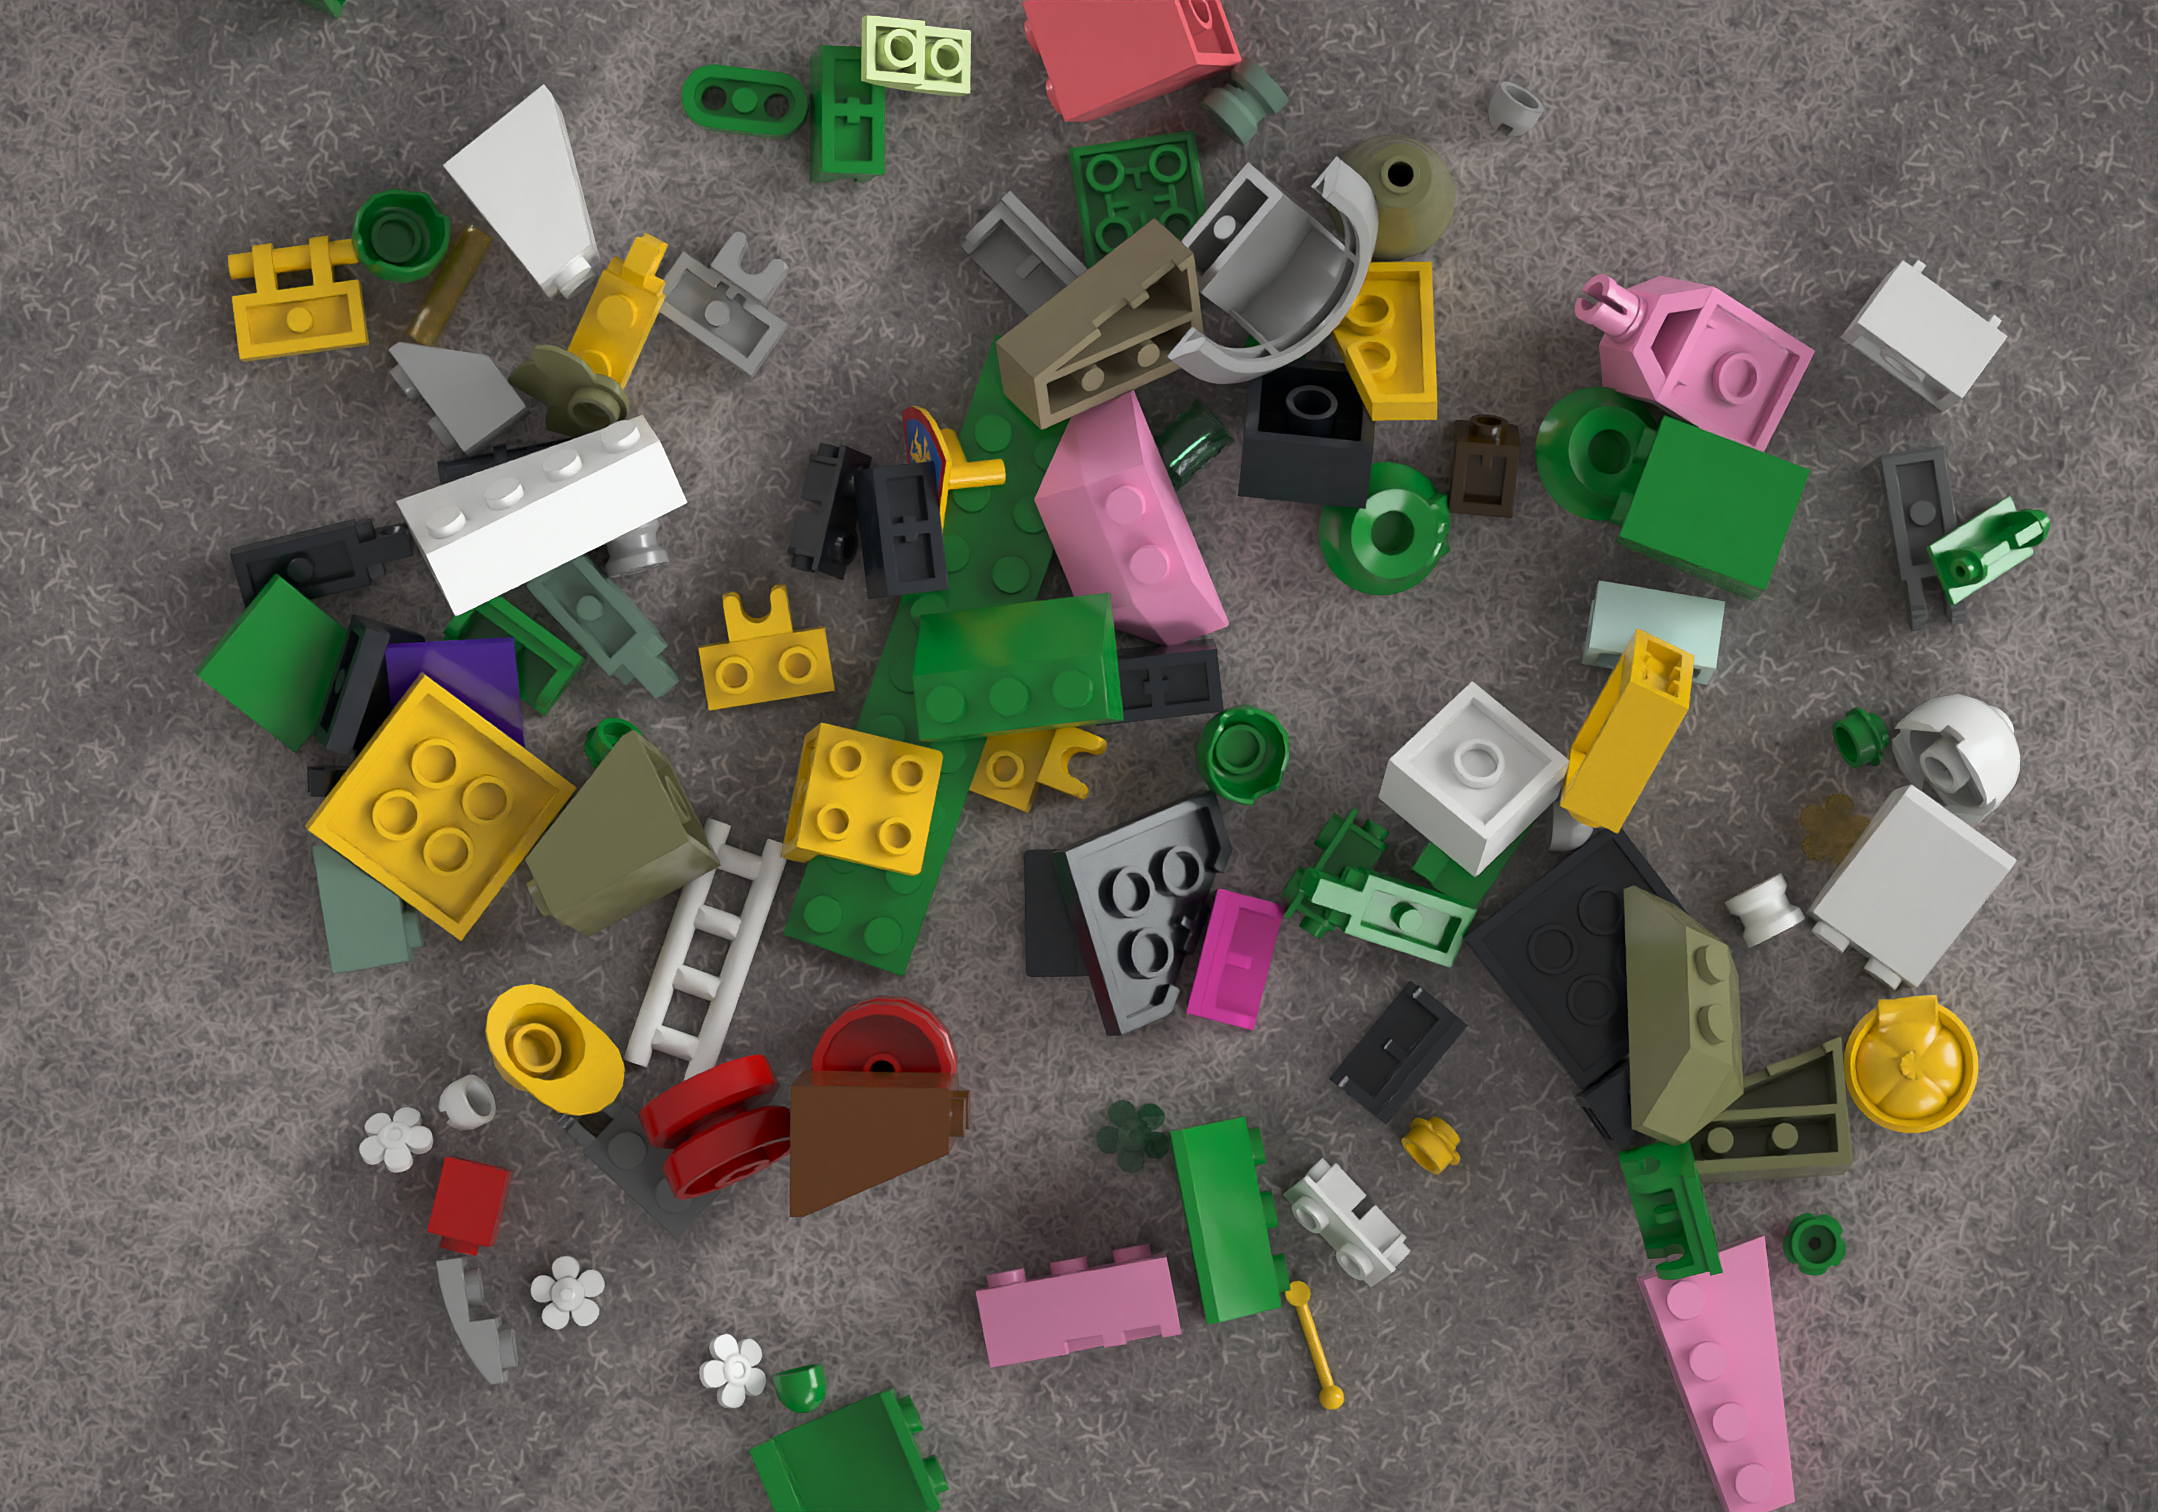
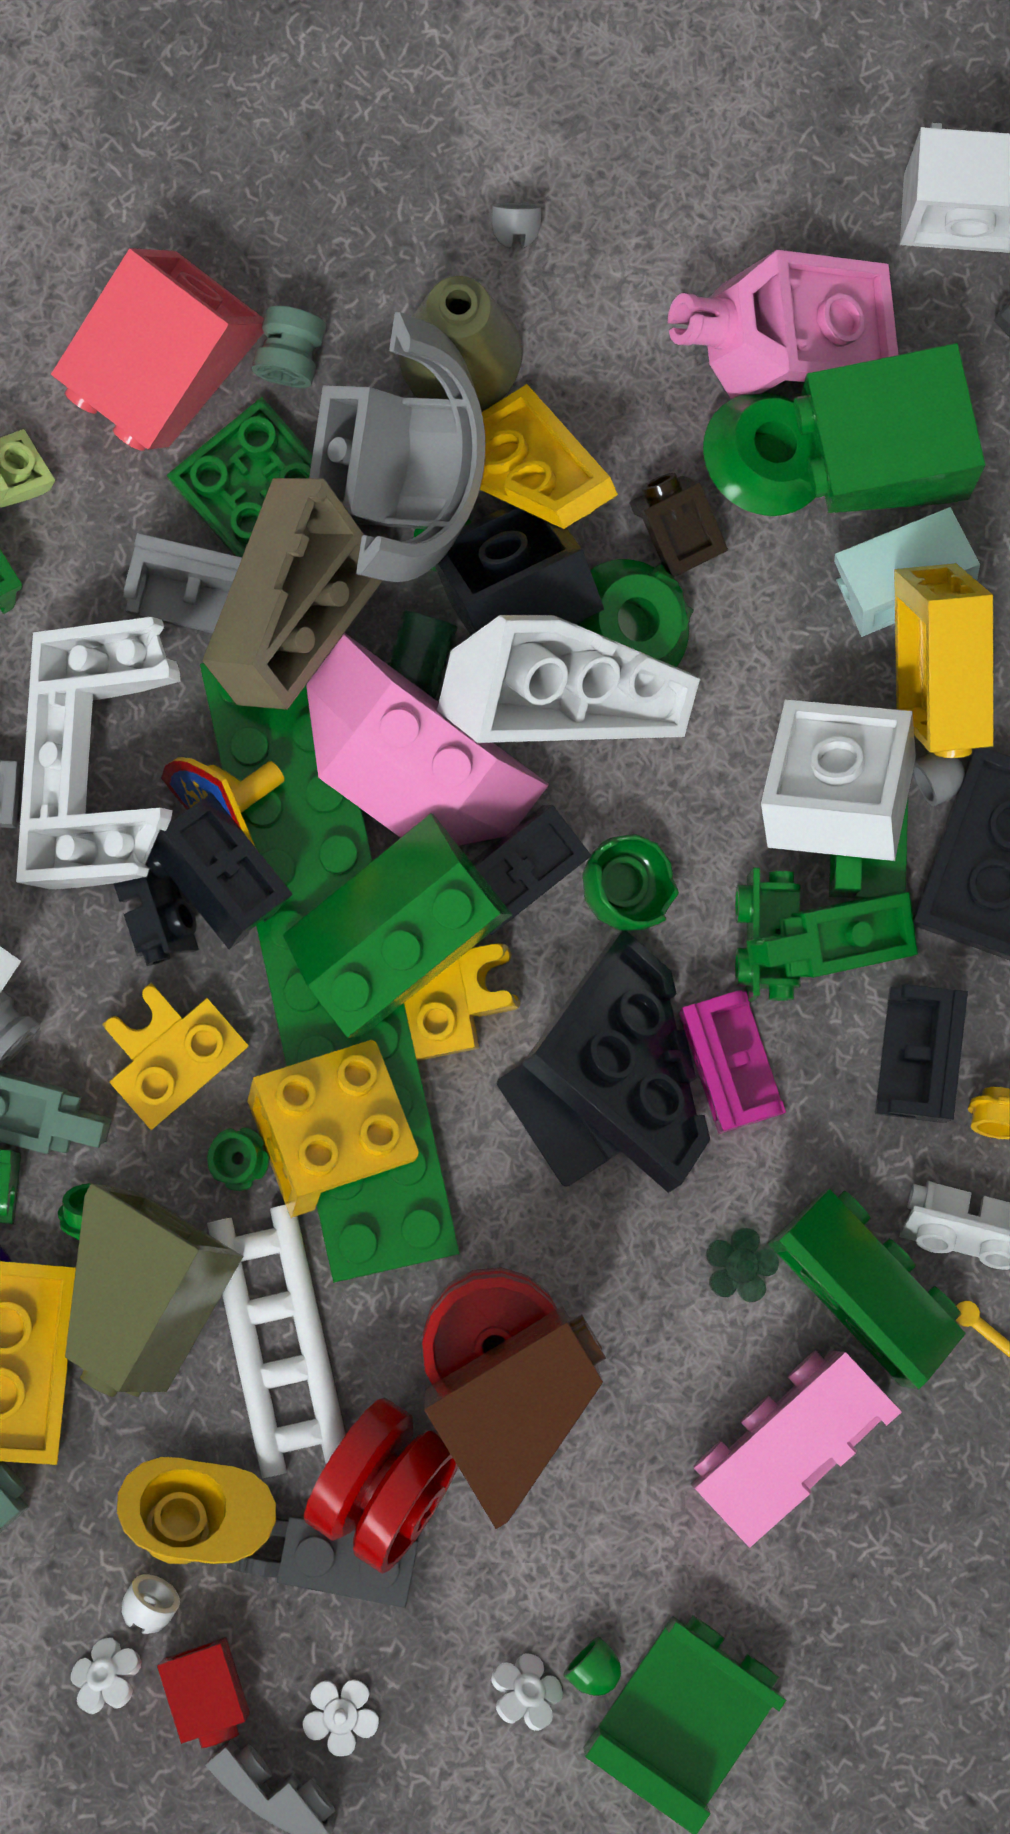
camera: 30 degrees left, 5 degrees down
(753, 770) = (222, 1153): none -> green plate
(873, 276) = (68, 671): none -> white wedge
(1285, 554) = (560, 682): none -> white wedge

